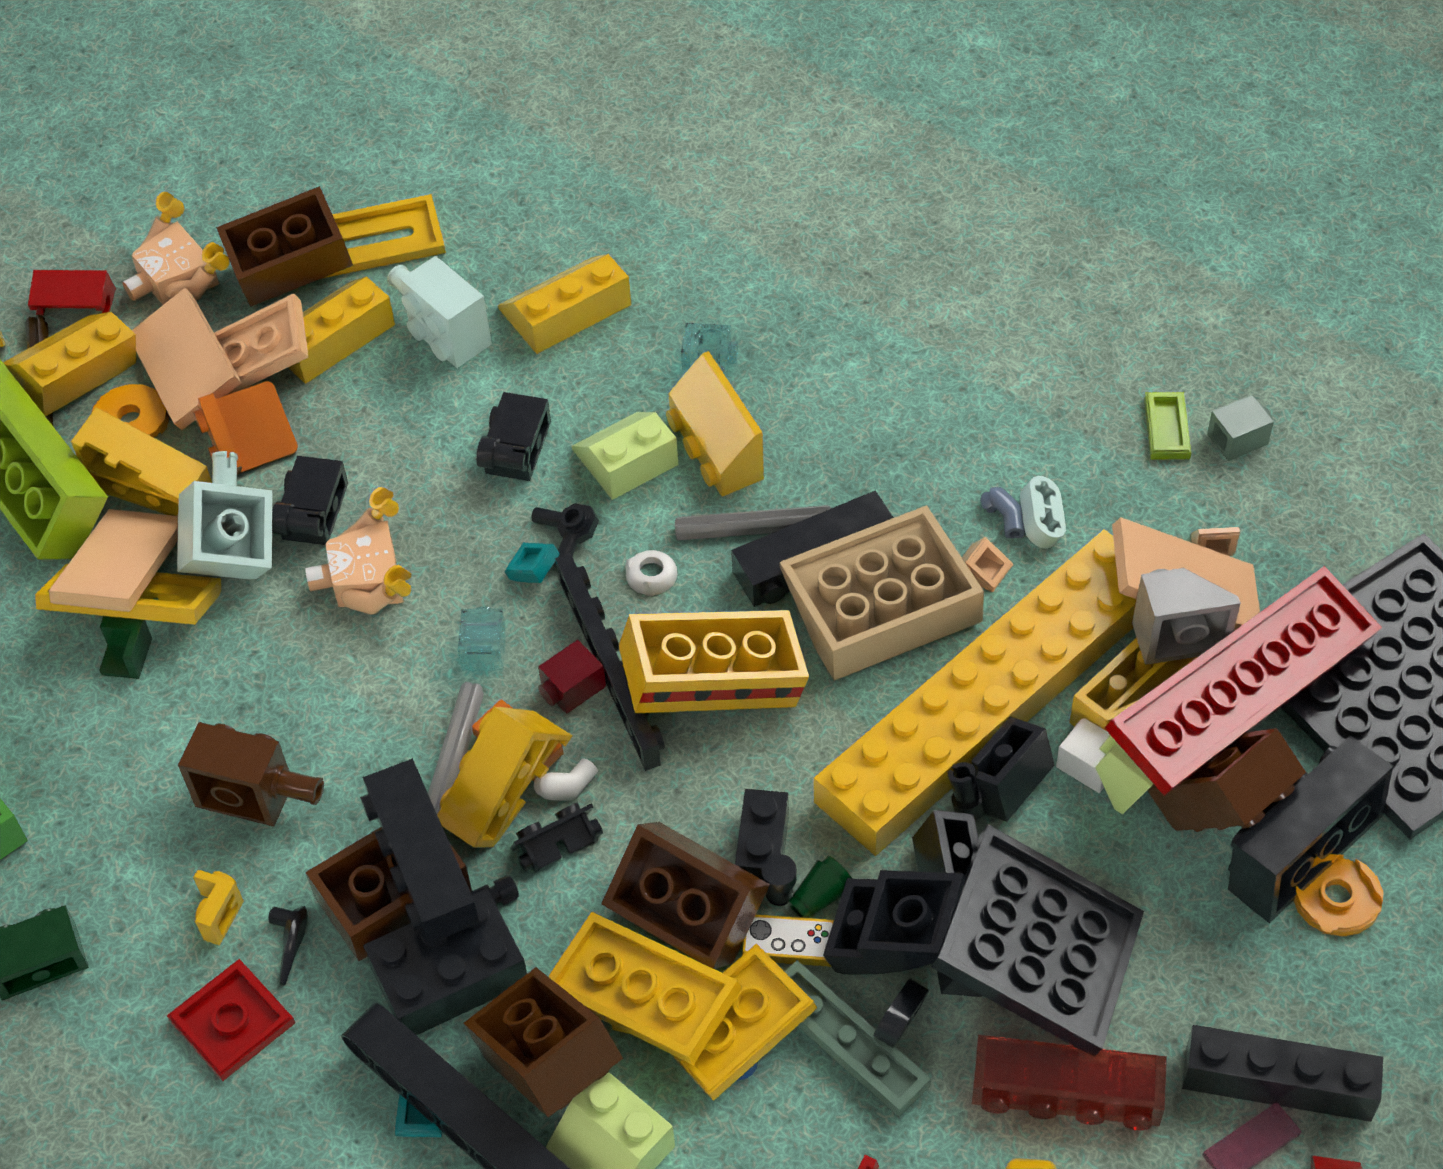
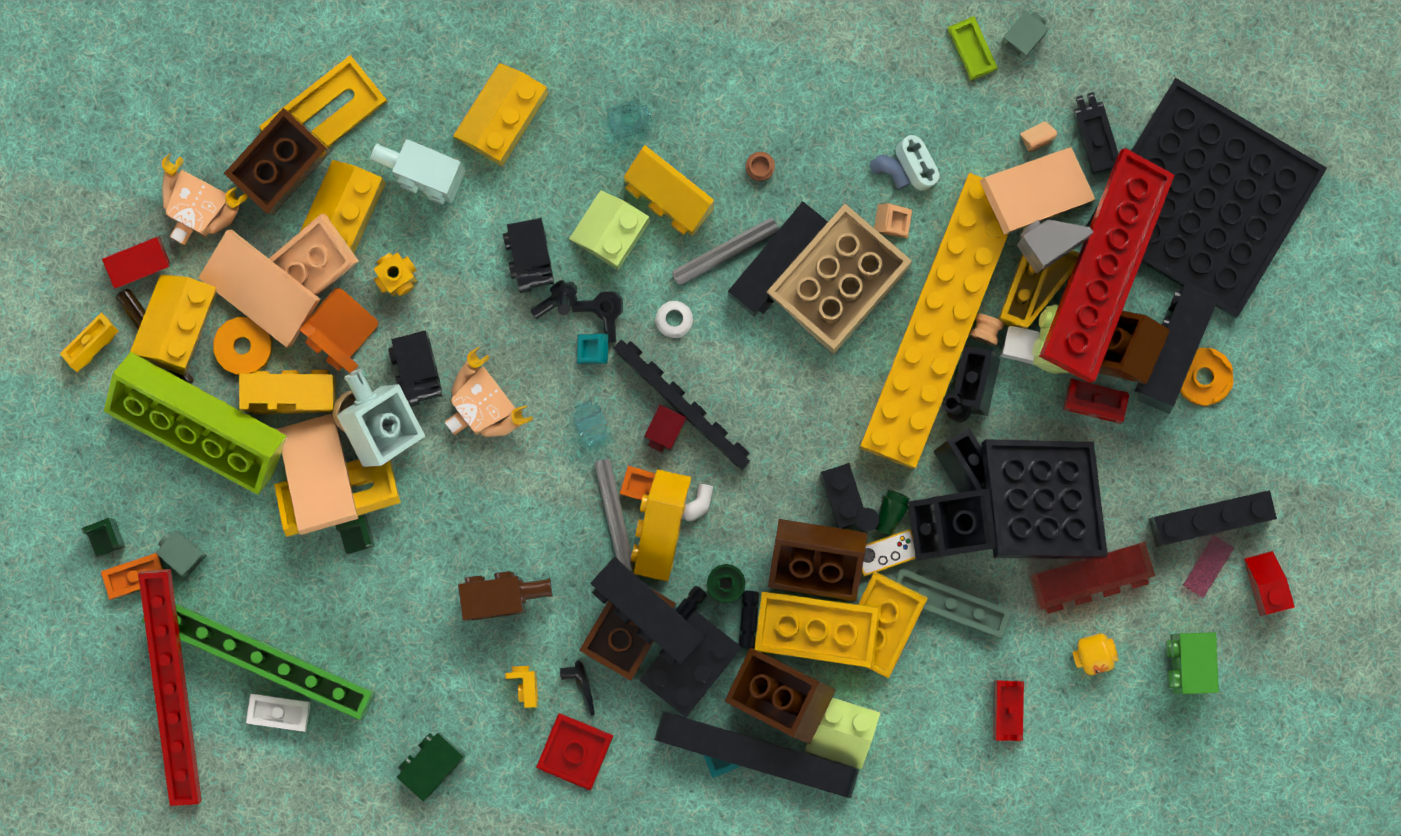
camera: 25 degrees left, 30 degrees up
(345, 402) = (398, 285): none -> yellow brick
(523, 490) = (562, 296): none -> black piece
(540, 843) = (718, 534): black hinge -> none
(548, 882) = (726, 583): none -> dark green wheel
(559, 940) = (749, 619): none -> black axle
(712, 661) = (758, 387): yellow brick -> none
(843, 451) = (760, 166): none -> nougat plate
(901, 1012) = (978, 577): black beam -> none
(1055, 716) = (986, 329): none -> light nougat wheel
(1165, 865) = (1096, 401): none -> red hinge
(1291, 555) = (1096, 134): none -> black hinge

